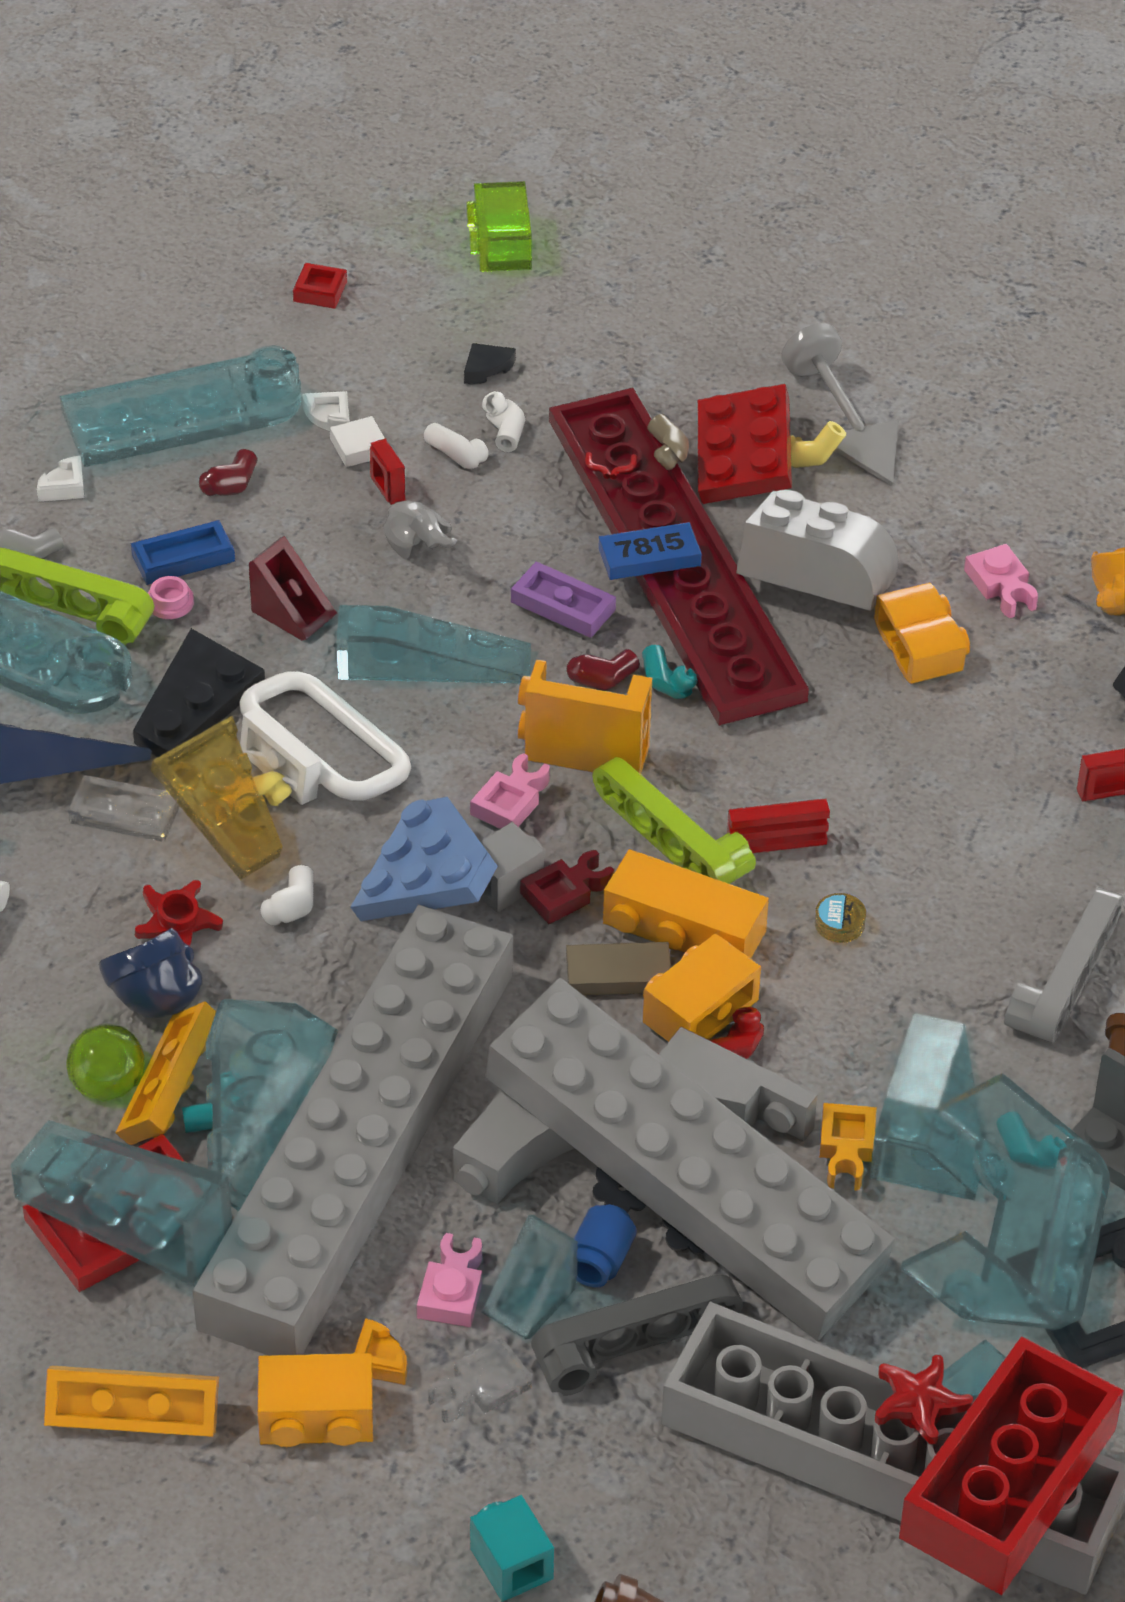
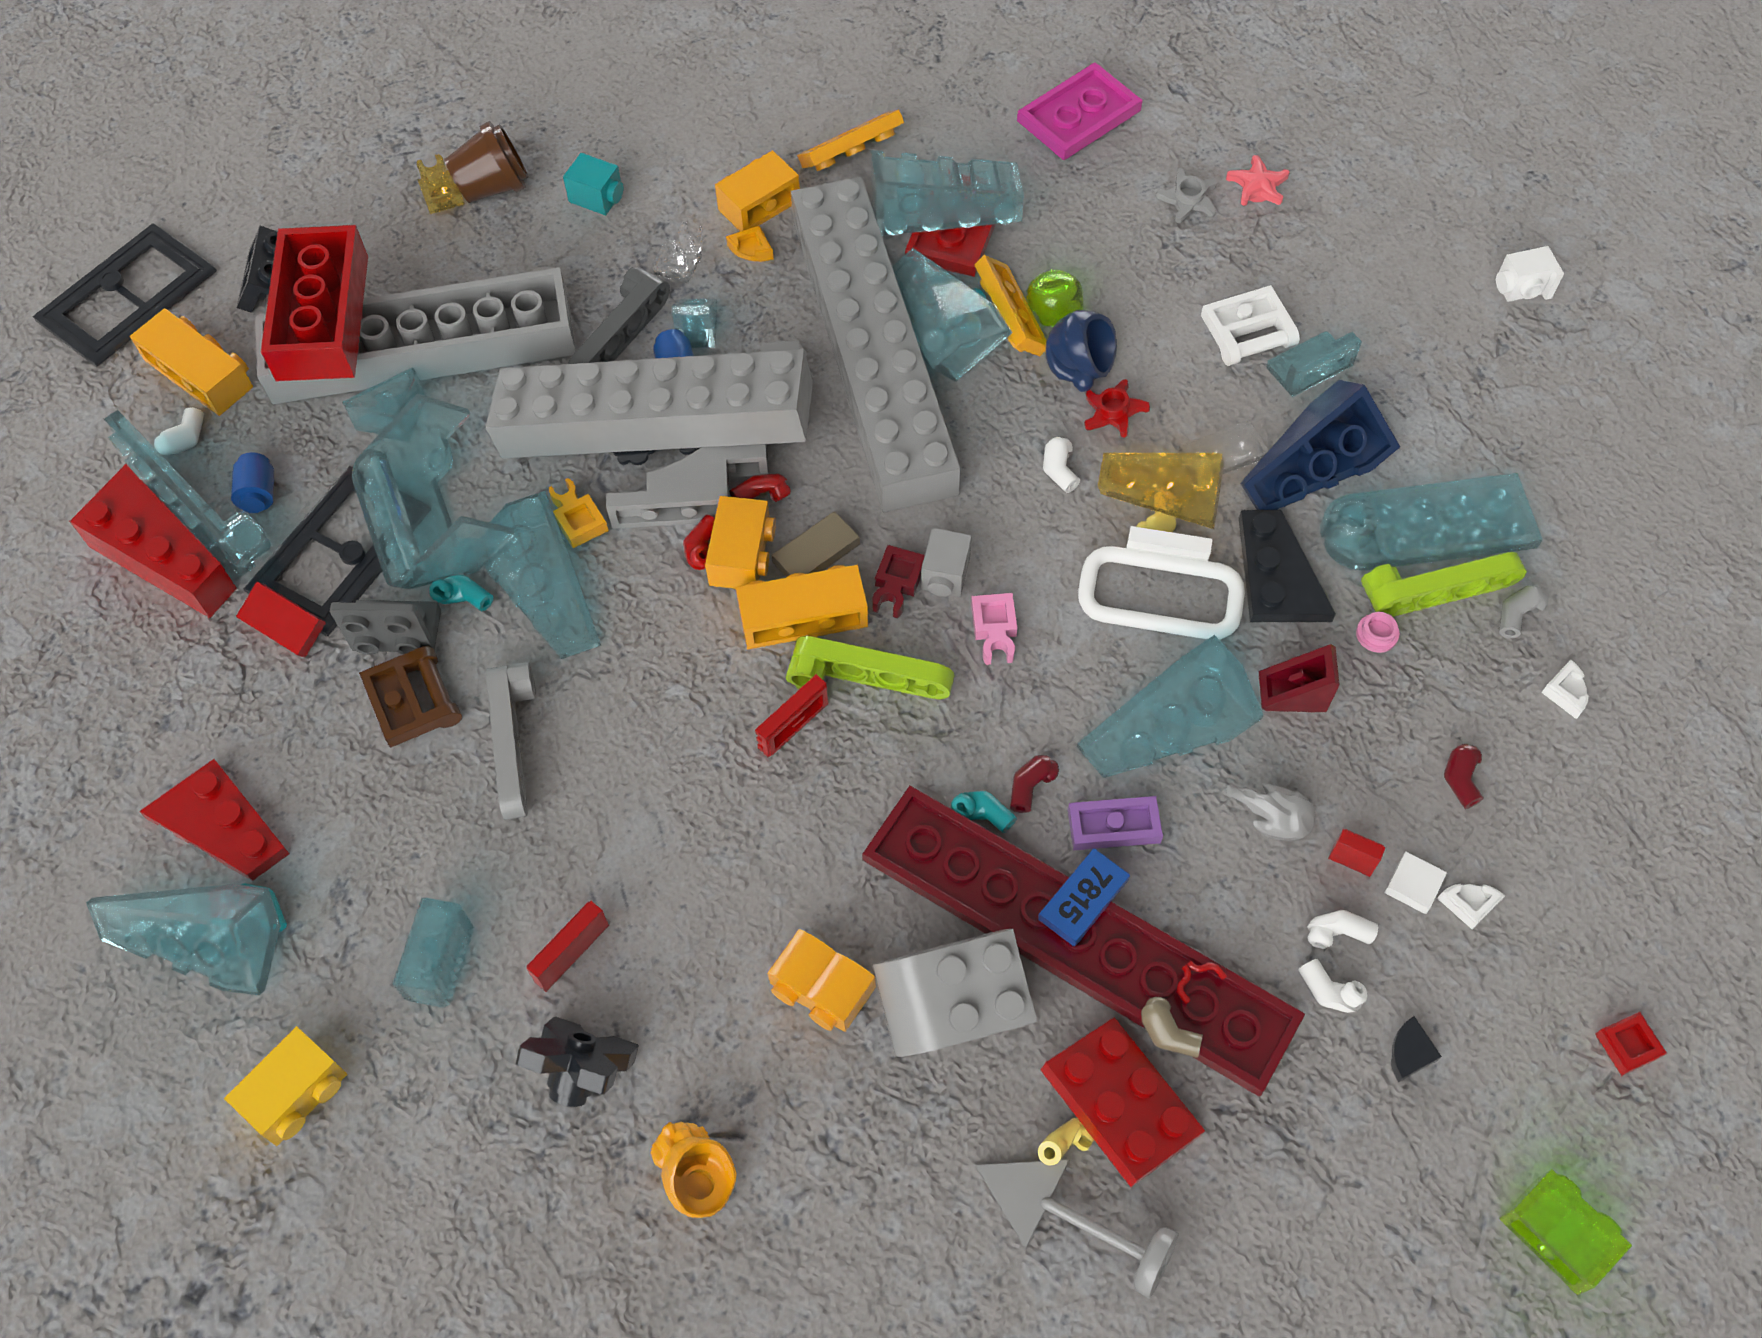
camera: 145 degrees right, 15 degrees up
(183, 552) = (1418, 685): blue tile -> none
(184, 406) = (1569, 812): clear light blue plate -> none
(425, 862) = (991, 518): medium blue plate -> none
(453, 1287) = (745, 299): bright pink plate -> none
(584, 725) = (983, 684): light orange panel -> none
(840, 917) = (700, 682): clear yellow tile -> none
(919, 1398) = (400, 327): red animal -> none
(1002, 575) = (809, 1110): bright pink plate -> none

